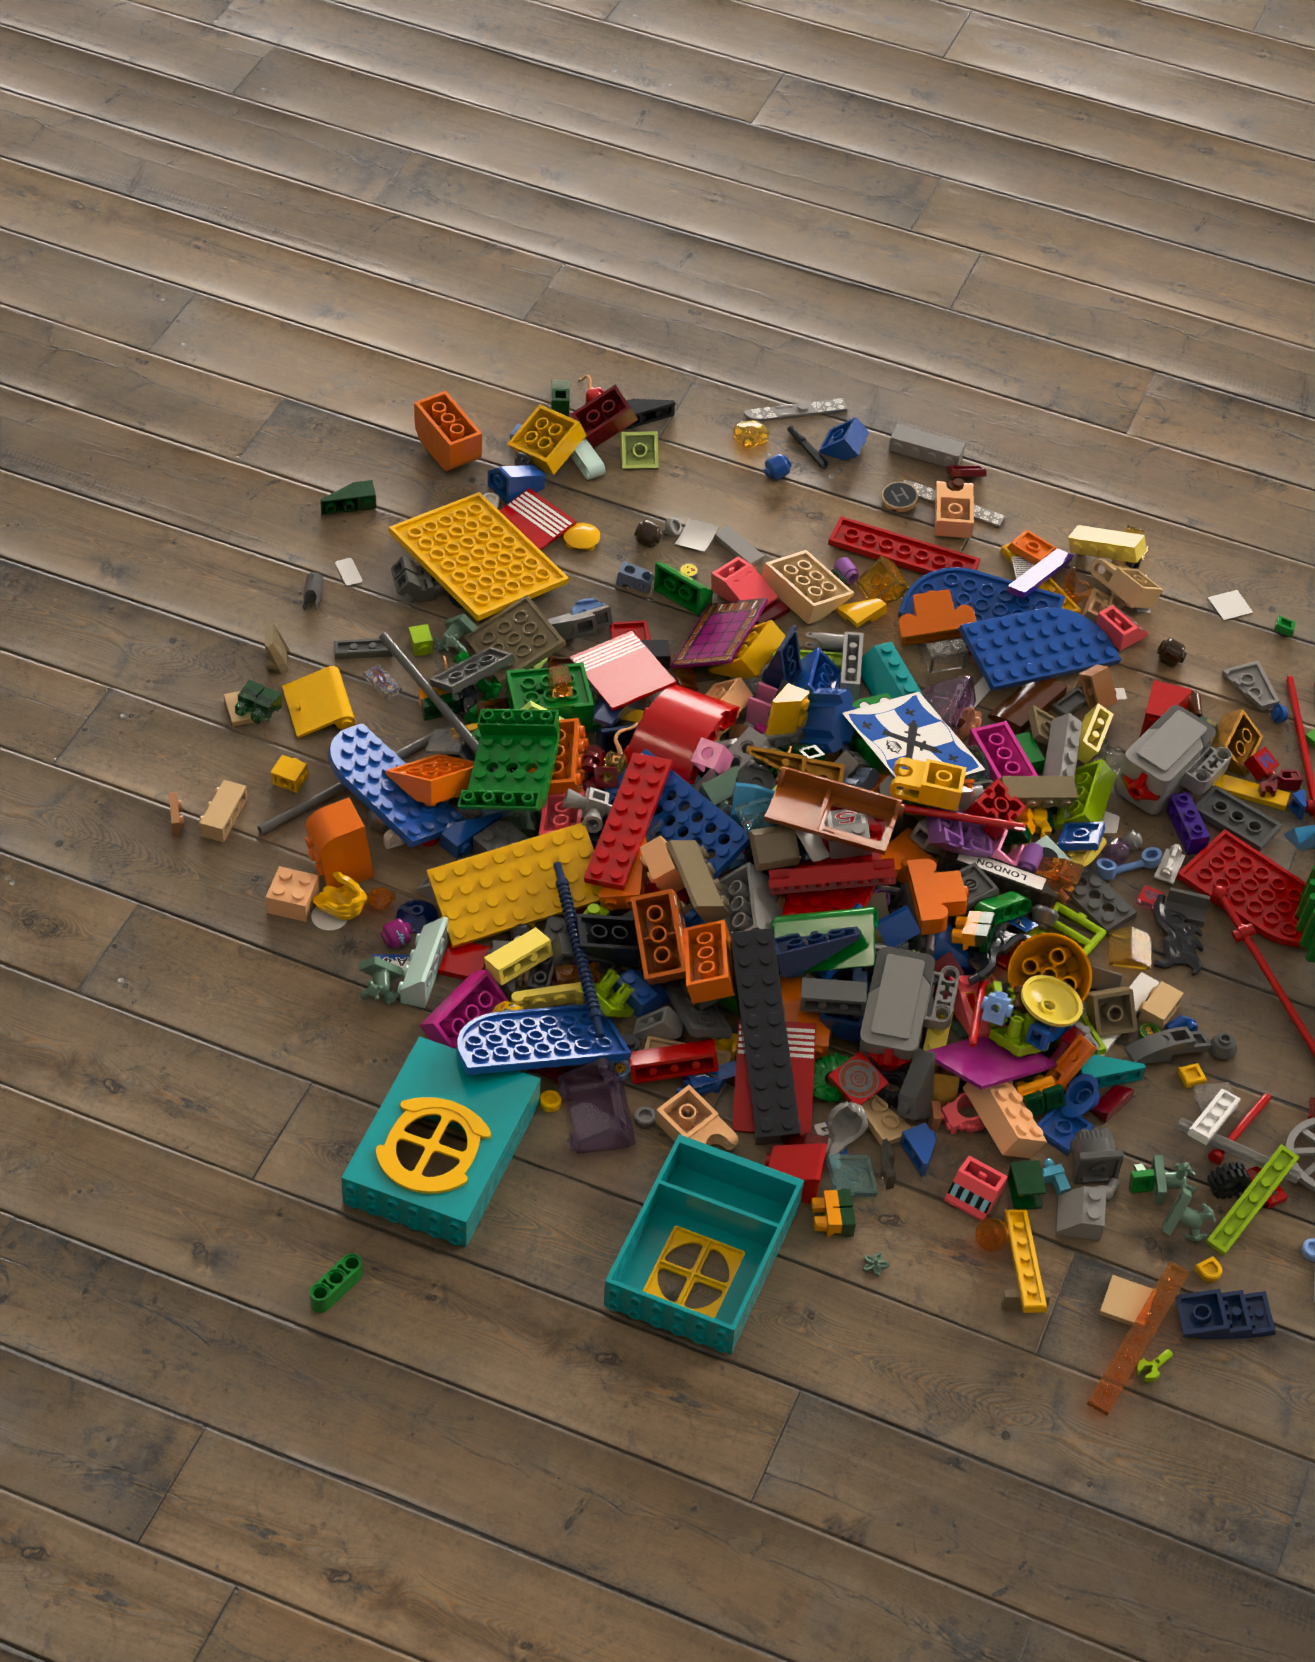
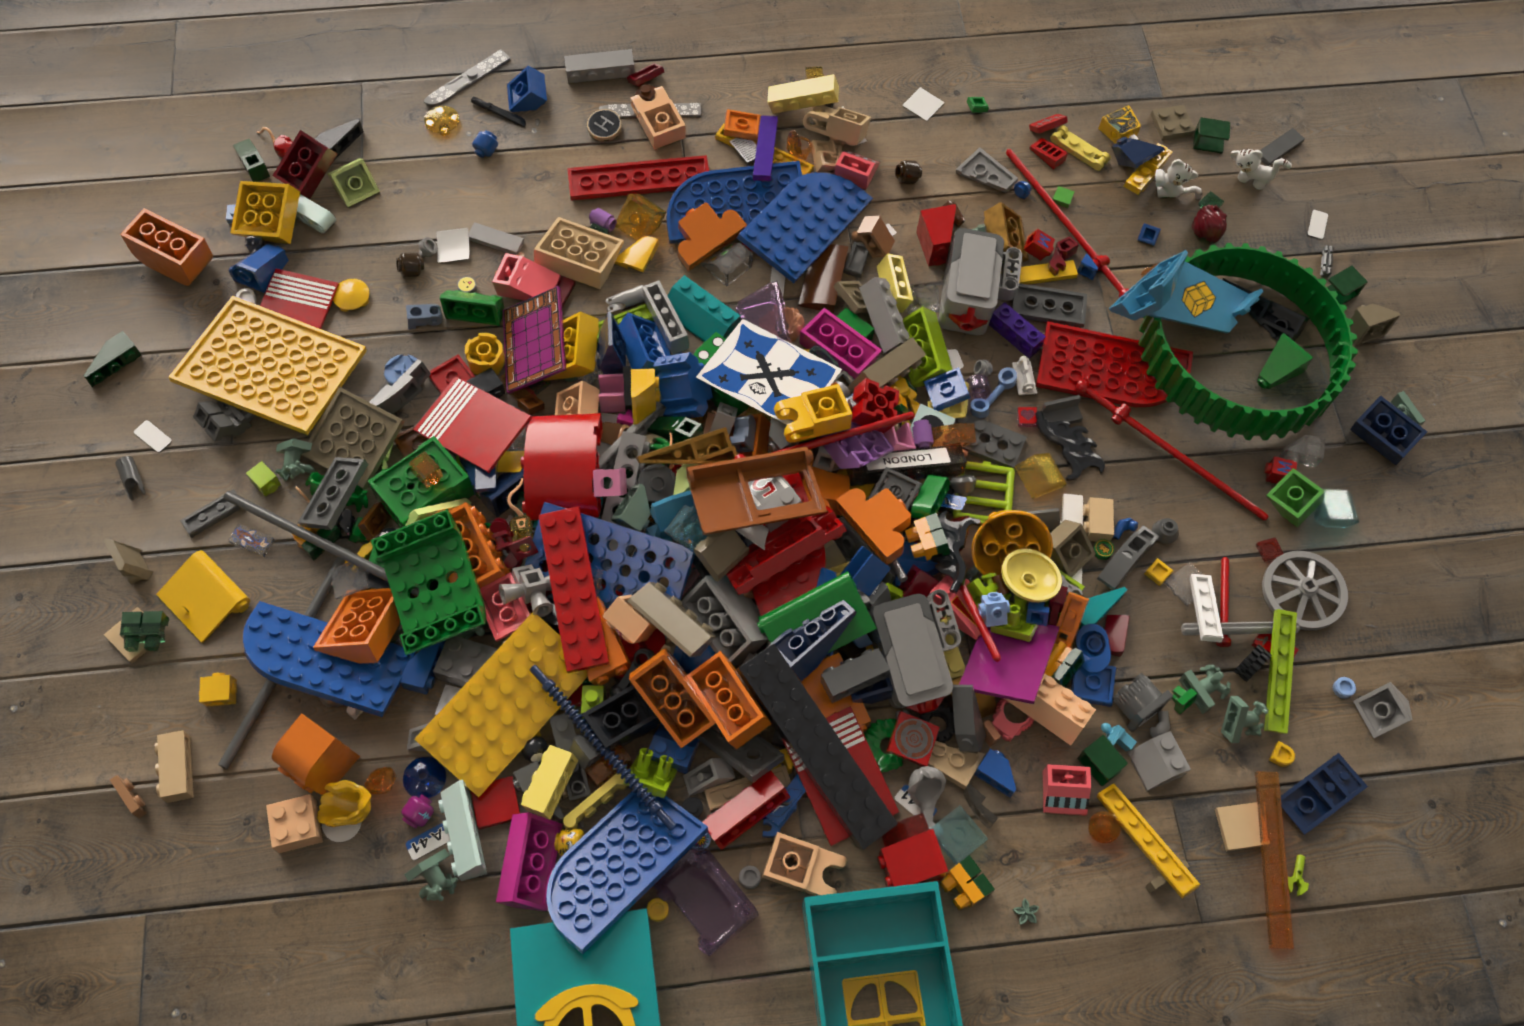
camera: 30 degrees left, 15 degrees up
(671, 626) = (485, 353): none -> yellow brick

